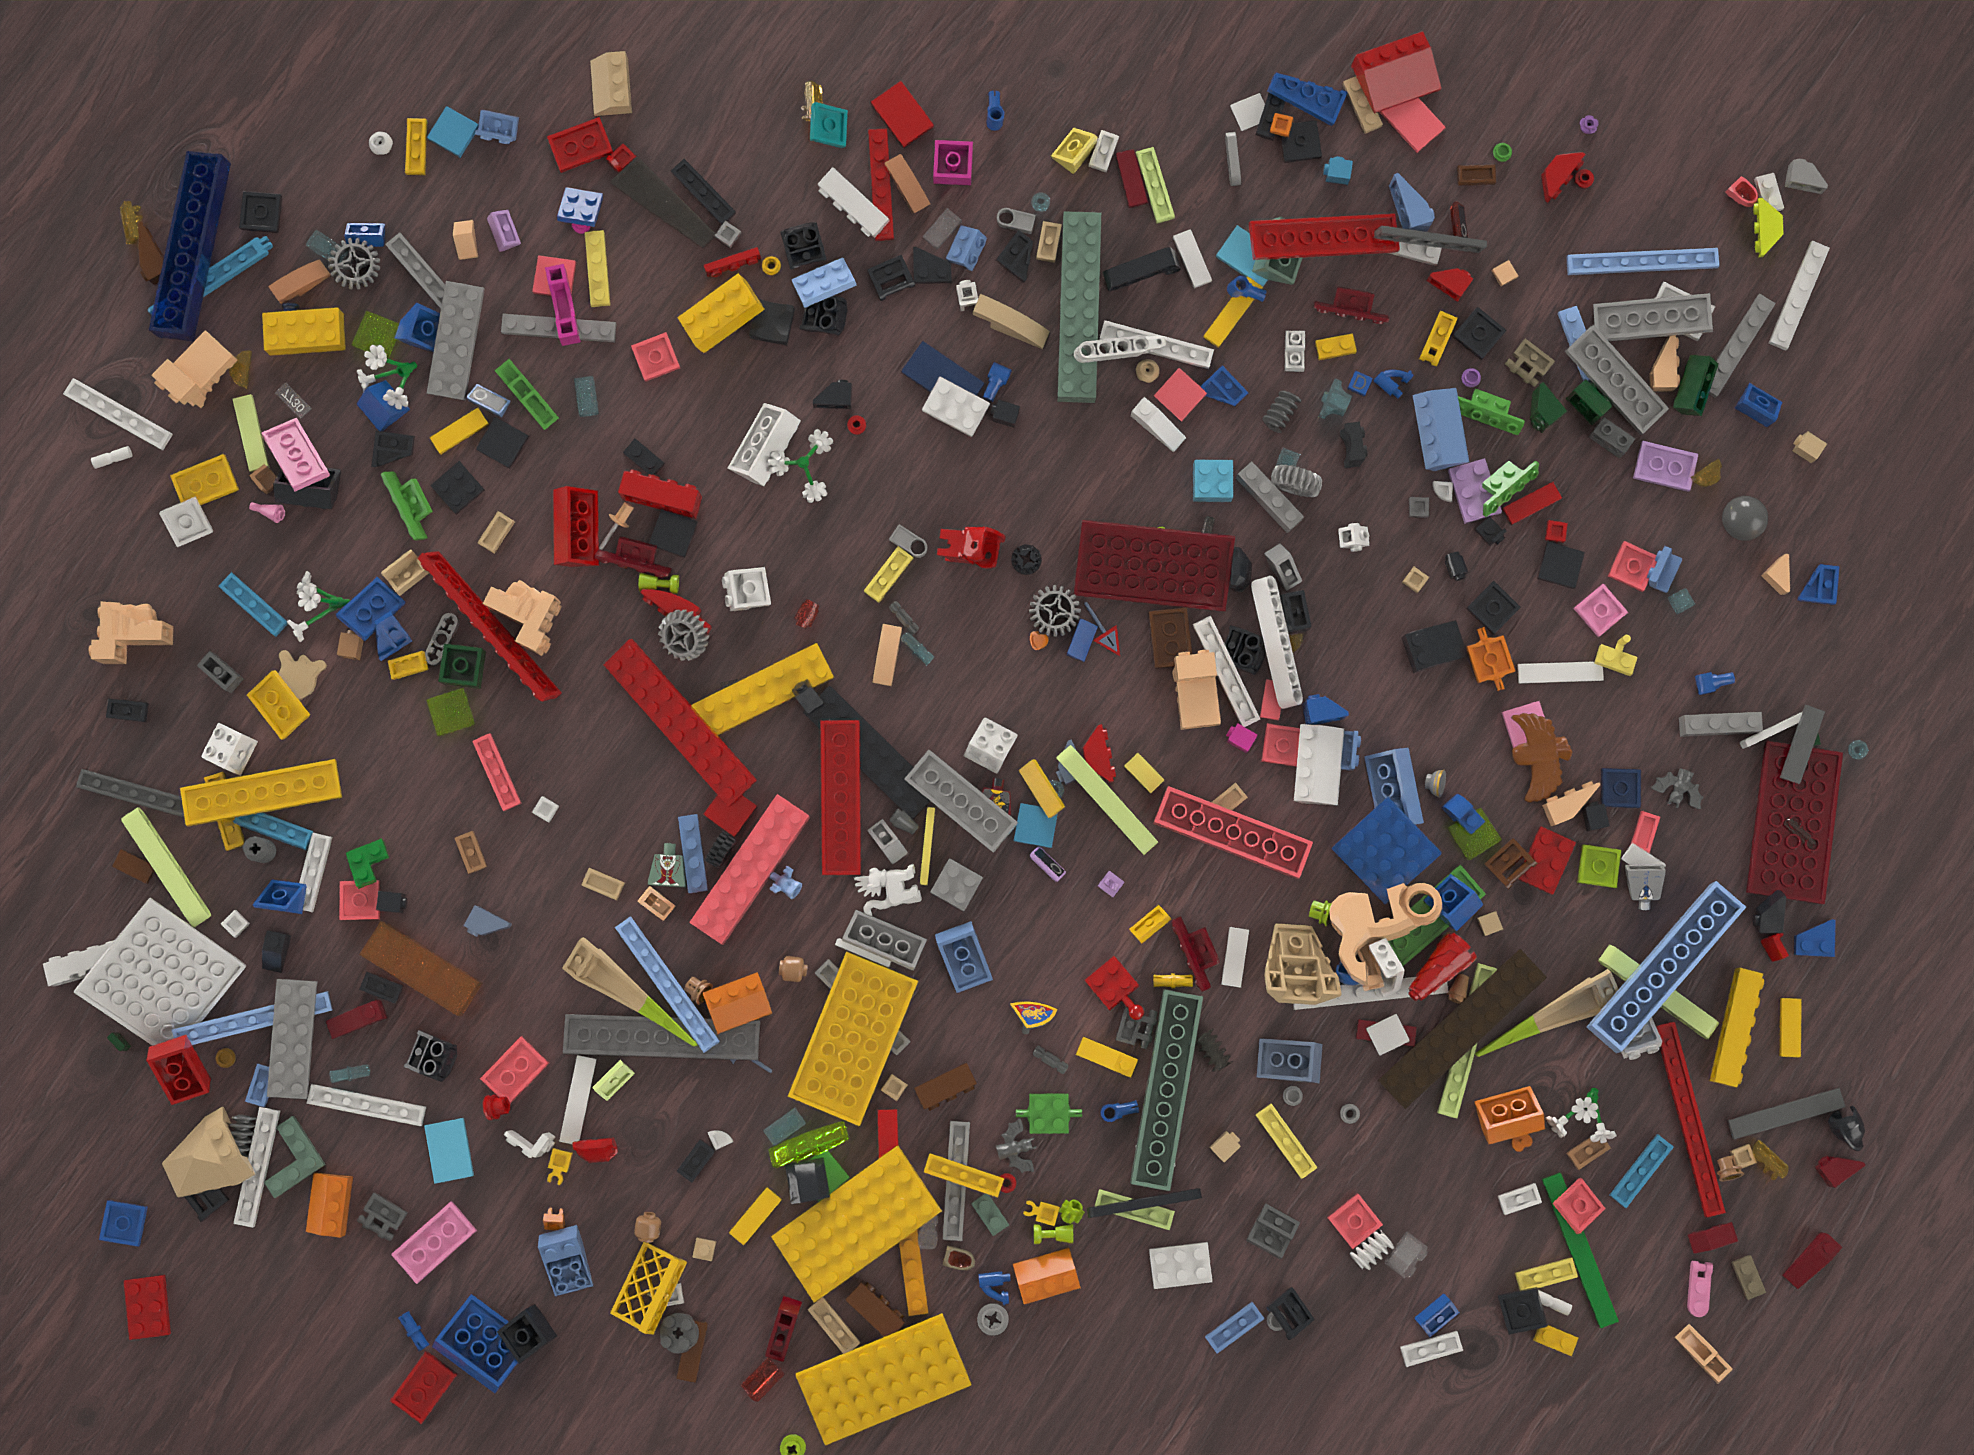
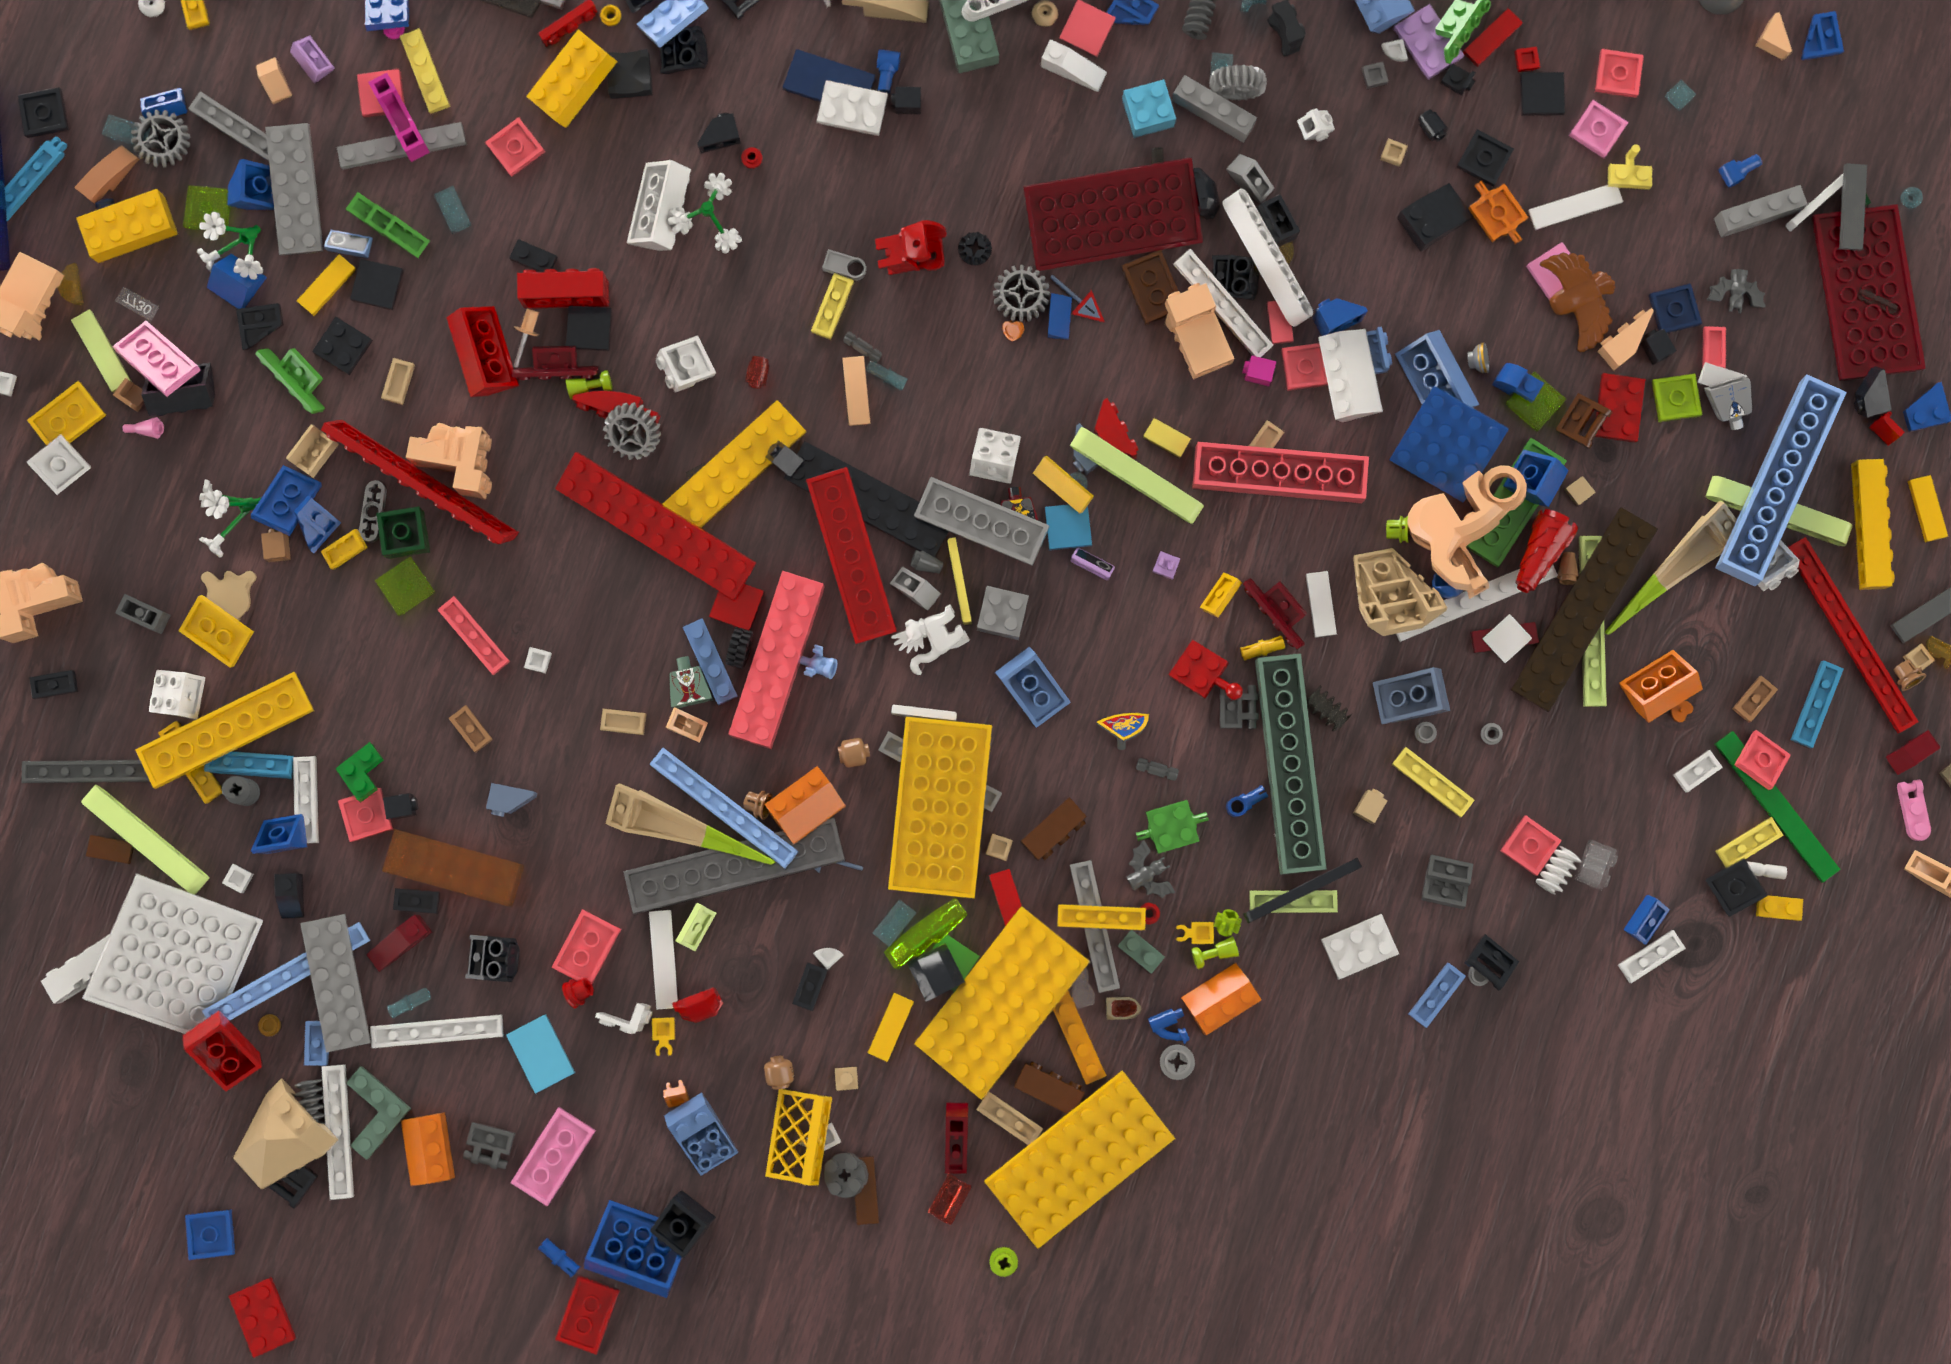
camera: 15 degrees left, 0 degrees up
(118, 1041) = (148, 1041): dark green tile -> none
(253, 604) = (157, 532): dark azure tile -> none
(884, 940) = (942, 692): light grey slope -> none
(1107, 1057) = (1217, 748): yellow slope -> none
(1389, 965) = (1490, 563): white panel -> none
(1585, 1109) = (1742, 652): white plant -> none
(1665, 570) = (1654, 66): medium blue bracket -> none

